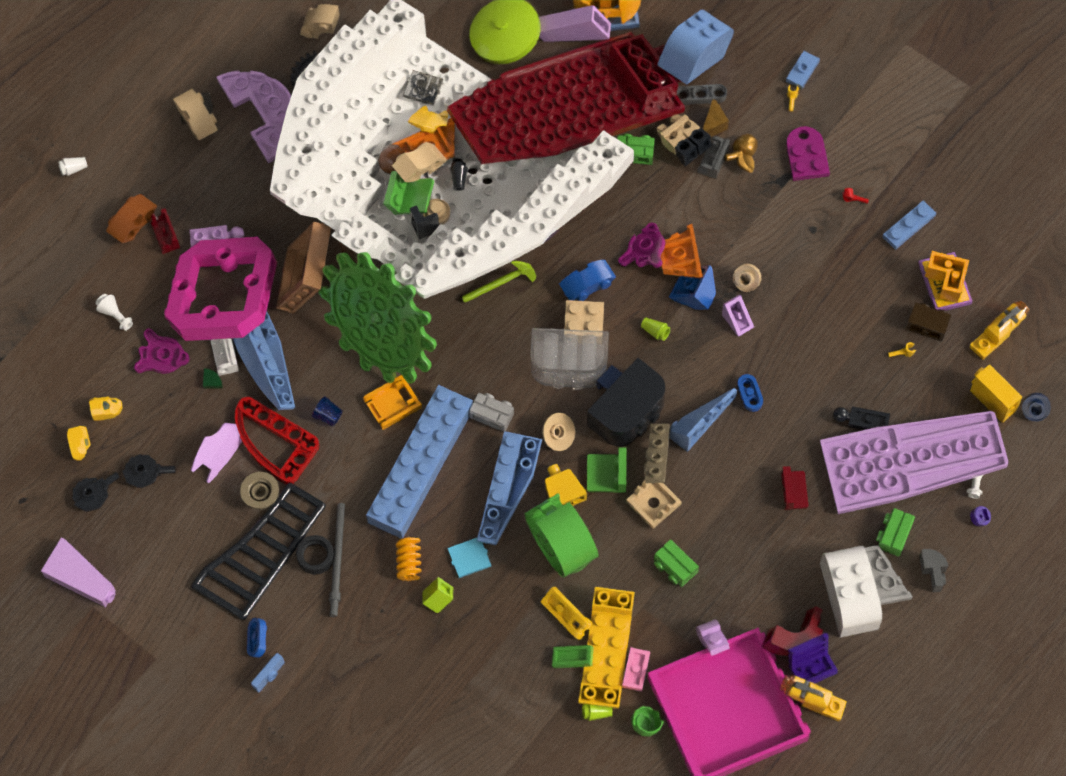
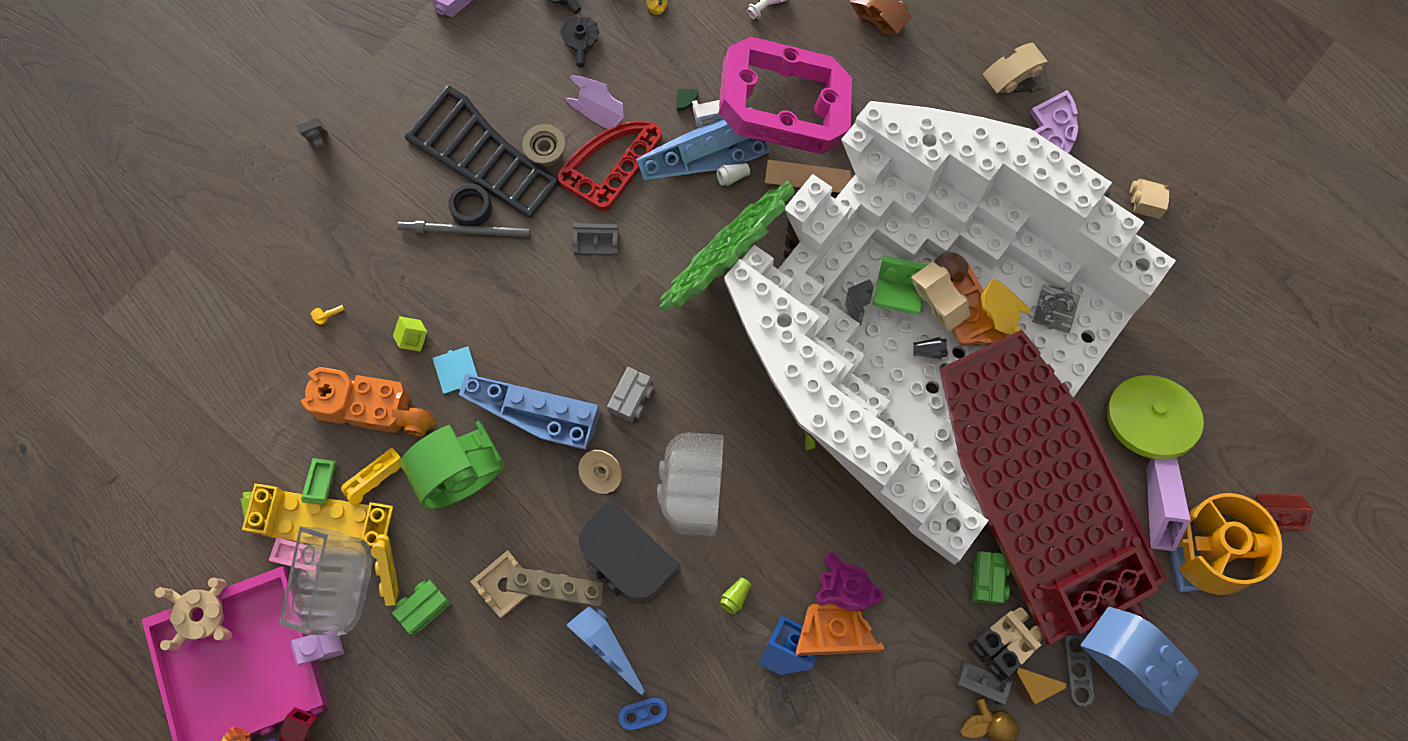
camera: 90 degrees right, 5 degrees up
(160, 355) = (714, 46): magenta tile -> none
(164, 232) = (866, 47): dark red hinge -> none
(213, 233) = (861, 90): lavender plate -> none
(240, 694) = (313, 130): none -> dark grey plate
(256, 637) = (372, 149): blue plate -> none
(268, 673) = (338, 160): medium blue plate -> none
(288, 339) = (732, 173): none -> white cone
(327, 412) = (638, 214): clear blue piece -> none
(349, 447) = (595, 239): none -> dark grey hinge
(388, 403) = (647, 284): light orange container -> none
(406, 559) = (455, 302): light orange piece -> none
(420, 462) = (571, 314): medium blue brick -> none
(421, 675) = (321, 317): none -> yellow hand
(441, 208) = (879, 322): tan plate -> none
(503, 623) = (363, 403): none -> orange brick
(565, 484) = (527, 475): yellow torso -> none
(584, 315) = (743, 505): tan brick -> none
(591, 279) = (801, 513): blue brick -> none
(606, 472) = (546, 529): bright green bracket -> none
(608, 378) = (664, 535): dark blue panel -> none
(646, 721) = (228, 563): bright green hair -> none
(649, 586) = (385, 569): none -> yellow plate
(662, 626) = (326, 582): none -> clear brick
(692, 722) = (183, 609): none -> tan plate
(737, 316) = (748, 703): lavender slope -> none
(747, 277) = (804, 718): tan plate -> none

